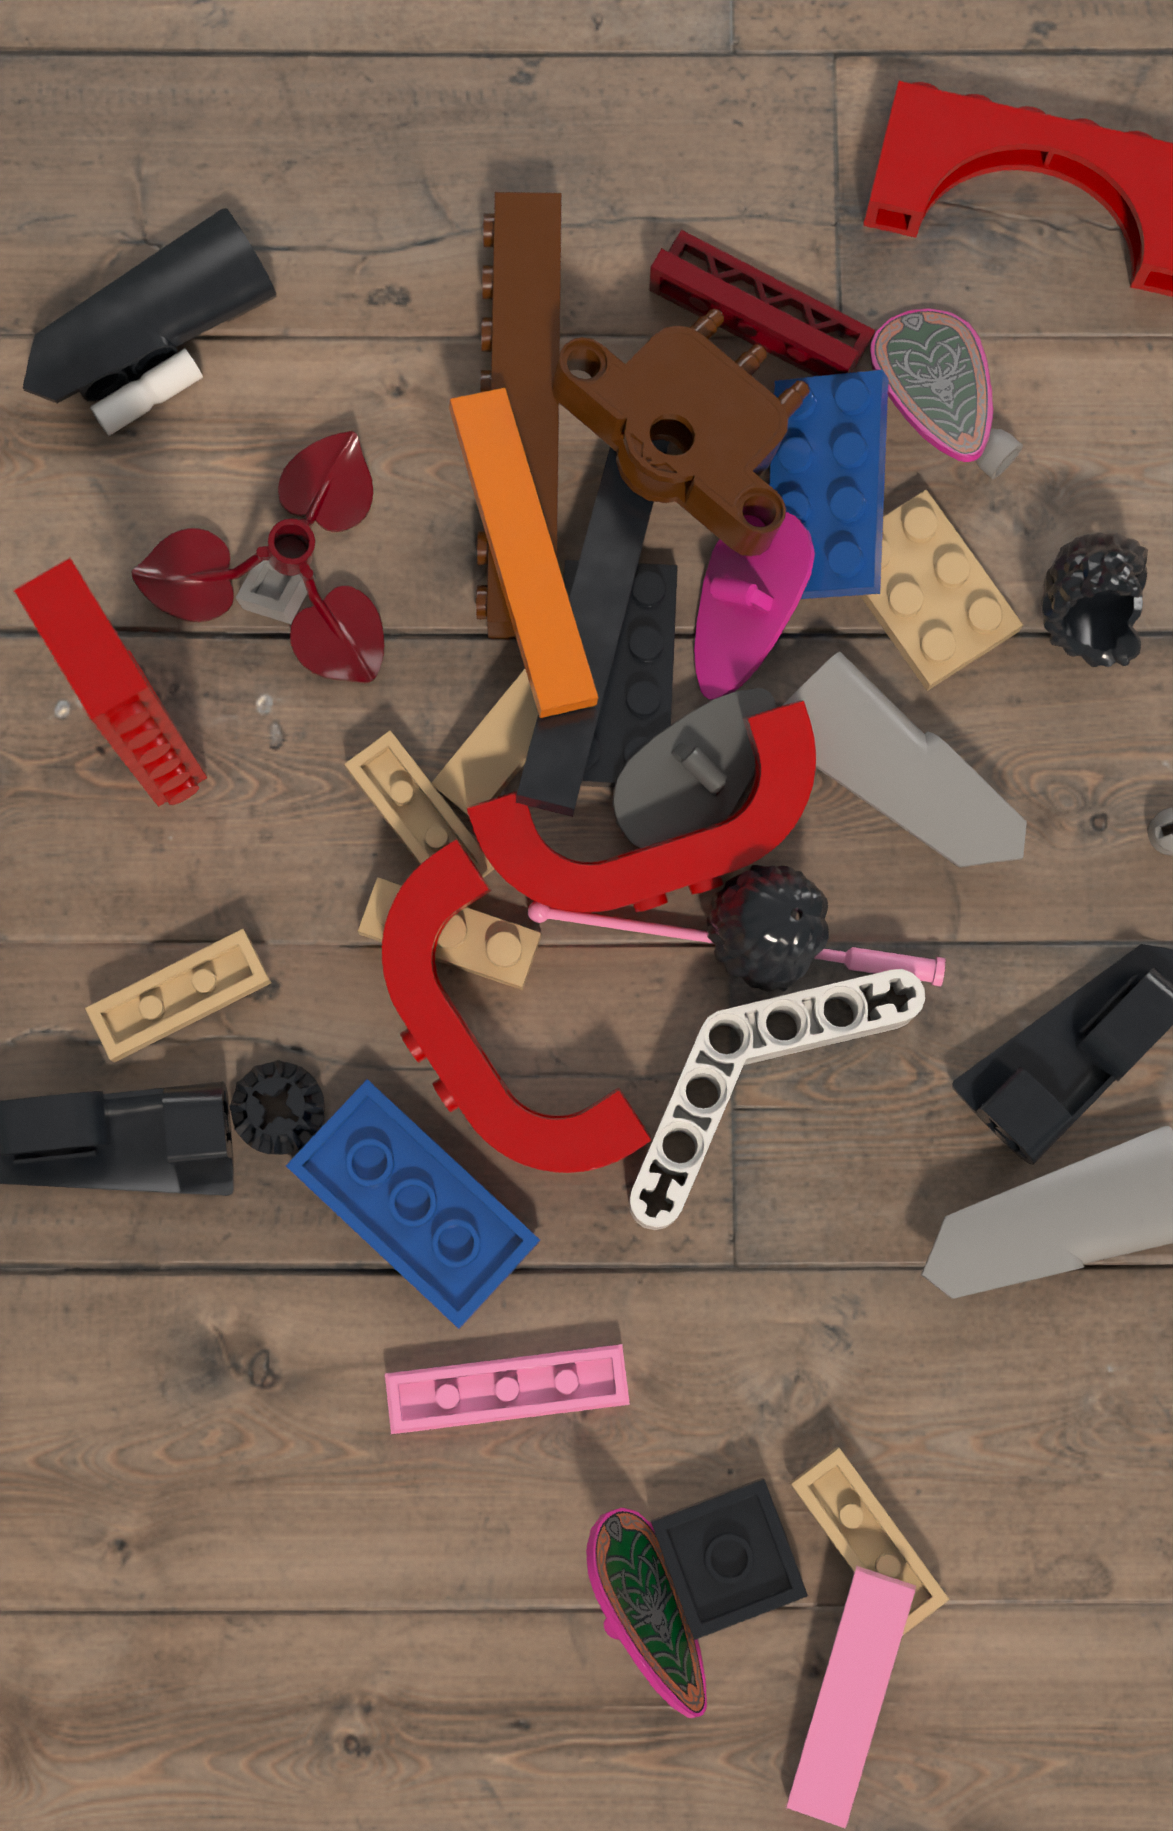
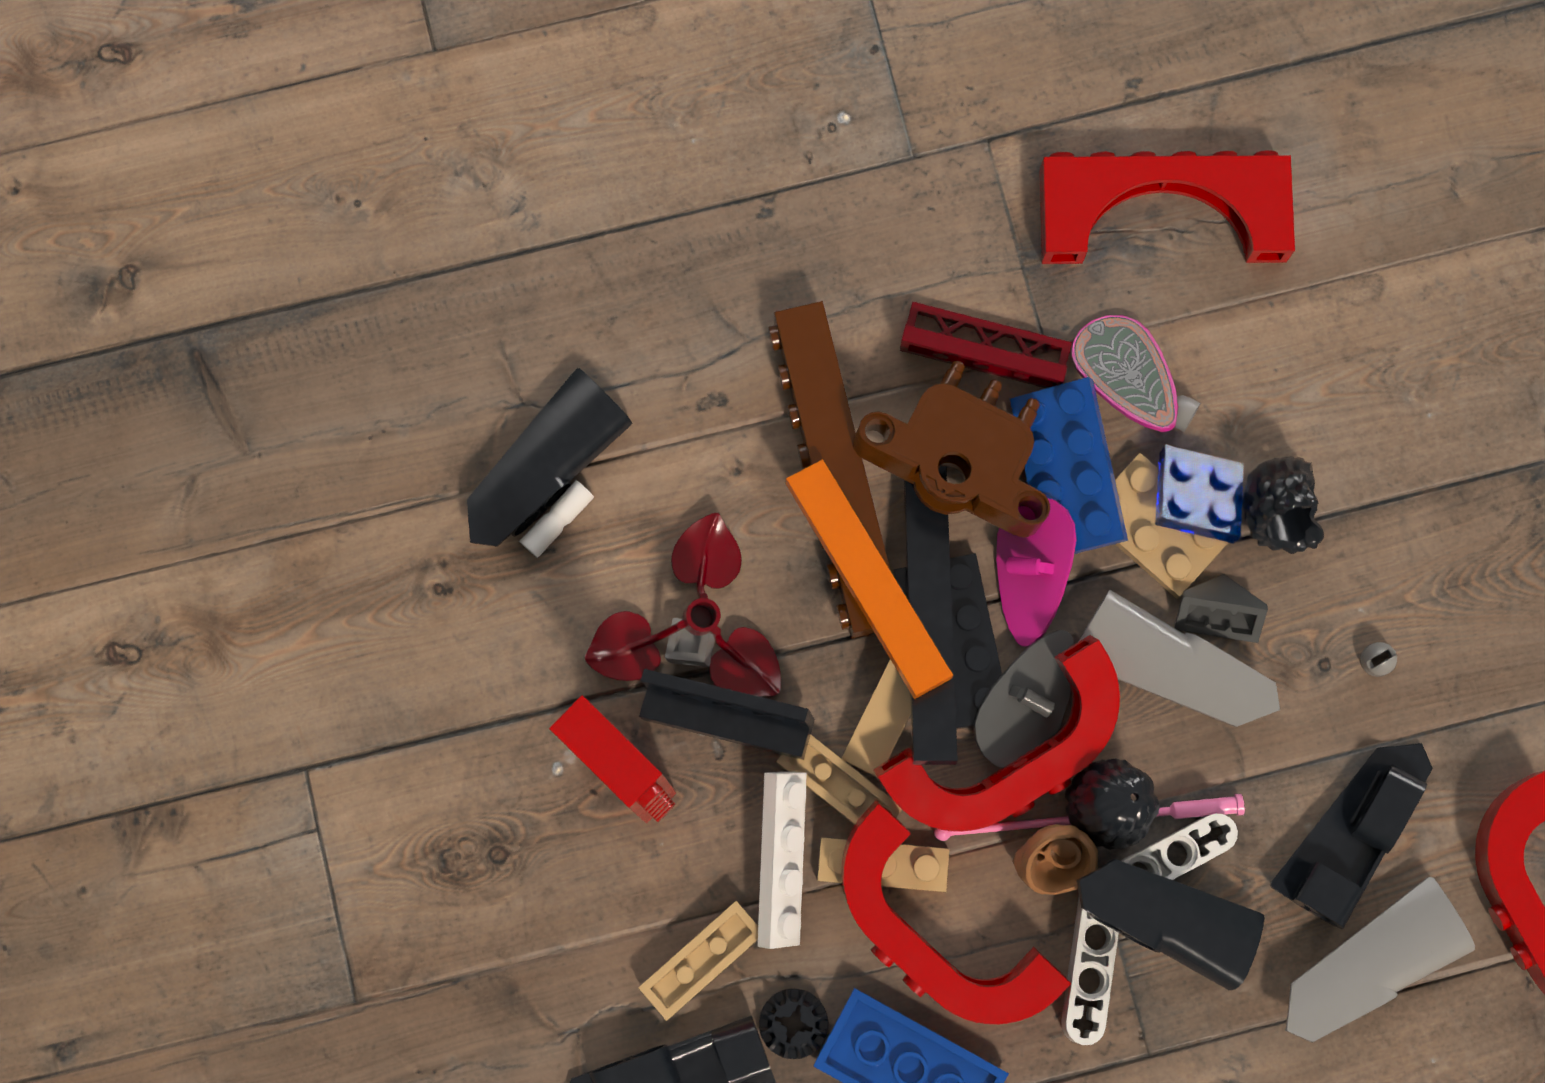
camera: 10 degrees left, 0 degrees up
(295, 686) = (726, 714): none -> black fence
(316, 888) = (782, 859): none -> white plate
(676, 978) = (1056, 859): none -> medium nougat hair
(808, 1089) = (1175, 919): none -> black panel
(981, 717) = (1221, 610): none -> dark grey slope
(990, 558) = (1199, 494): none -> clear blue plate

